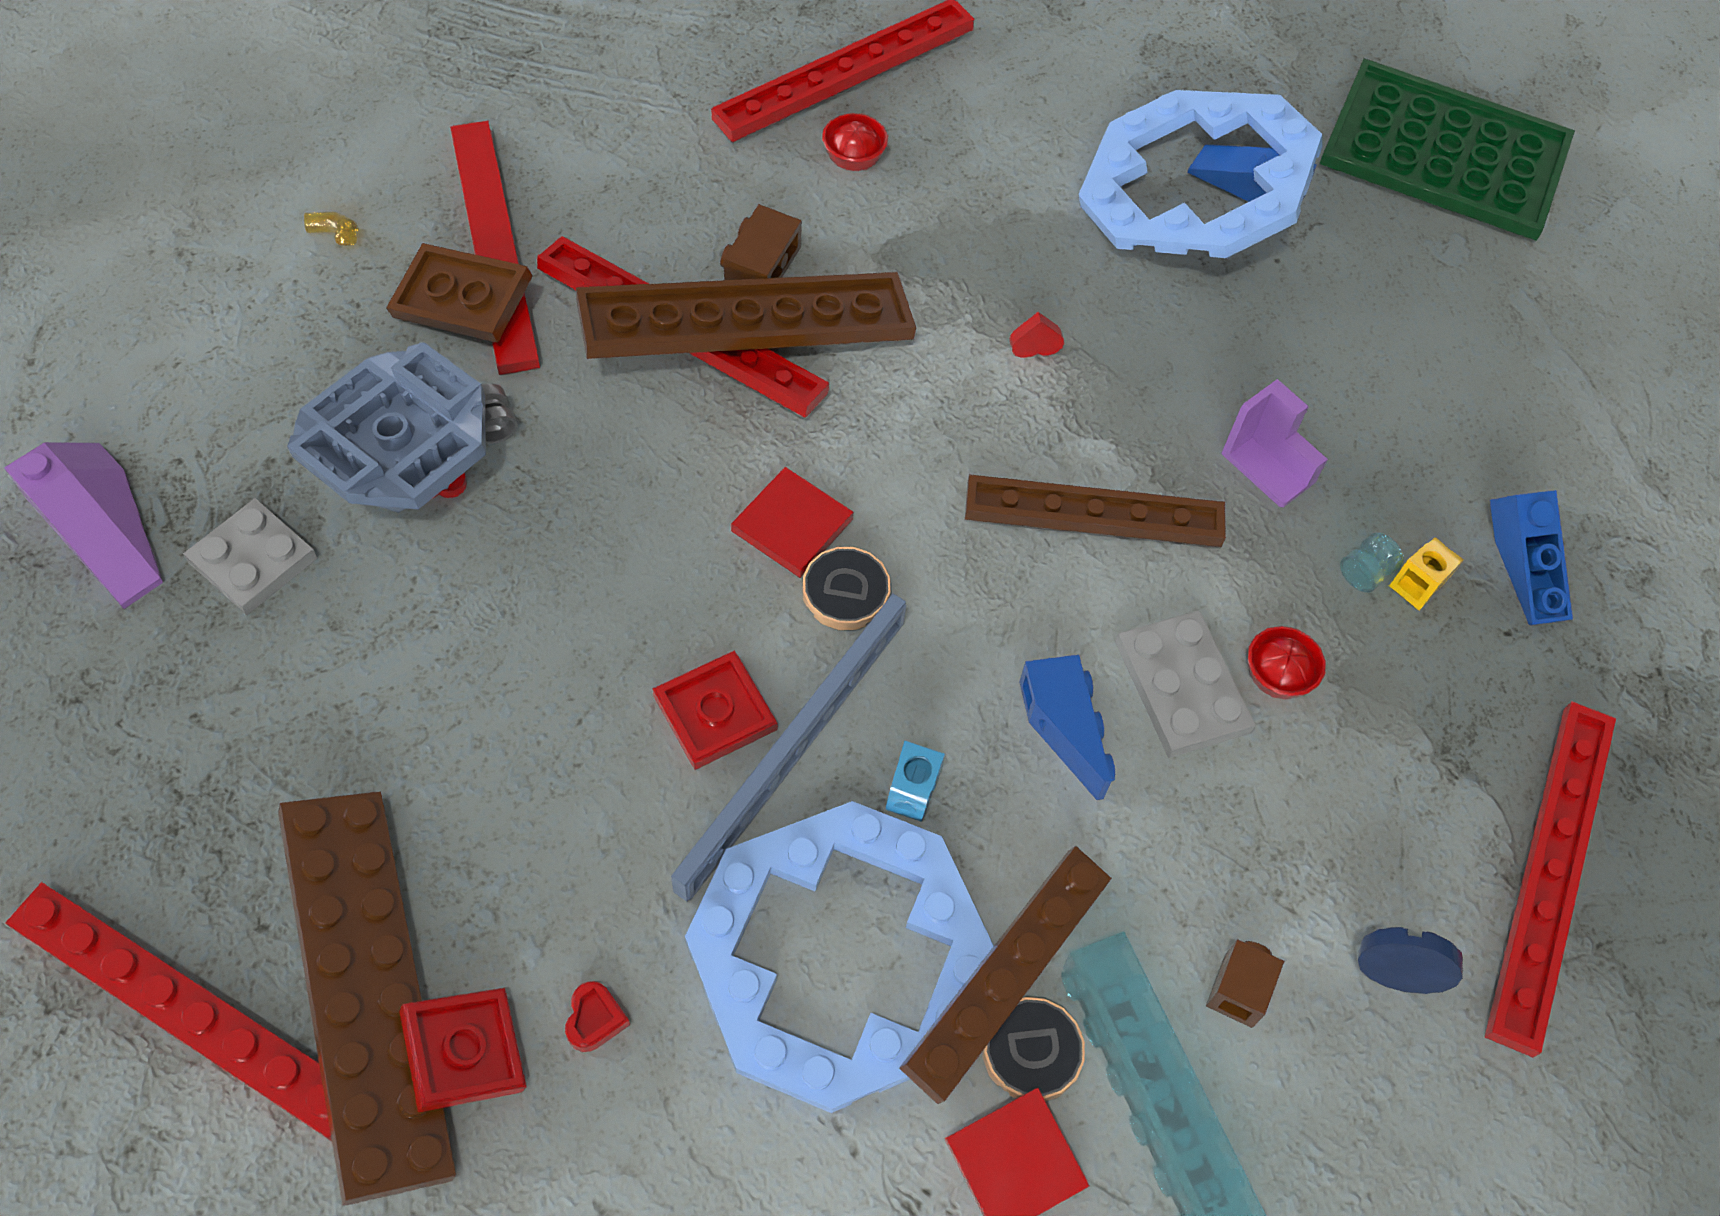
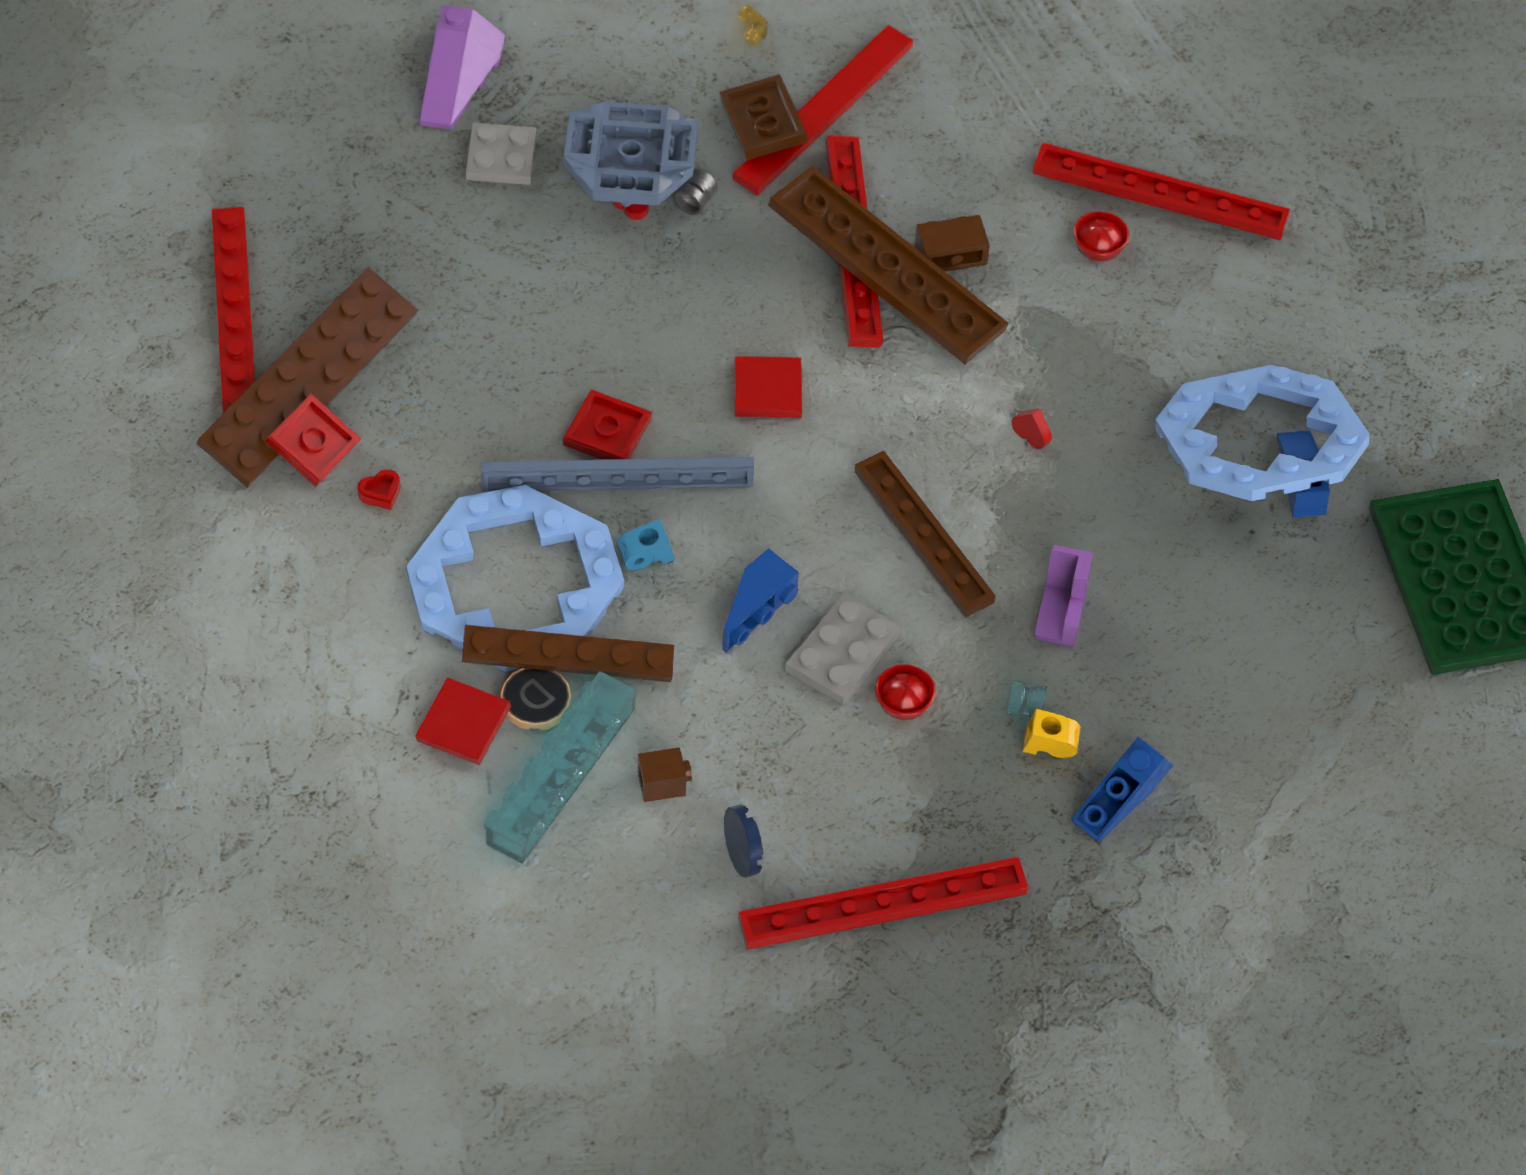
camera: 55 degrees right, 5 degrees down
(845, 587) = (748, 436): black tile -> none

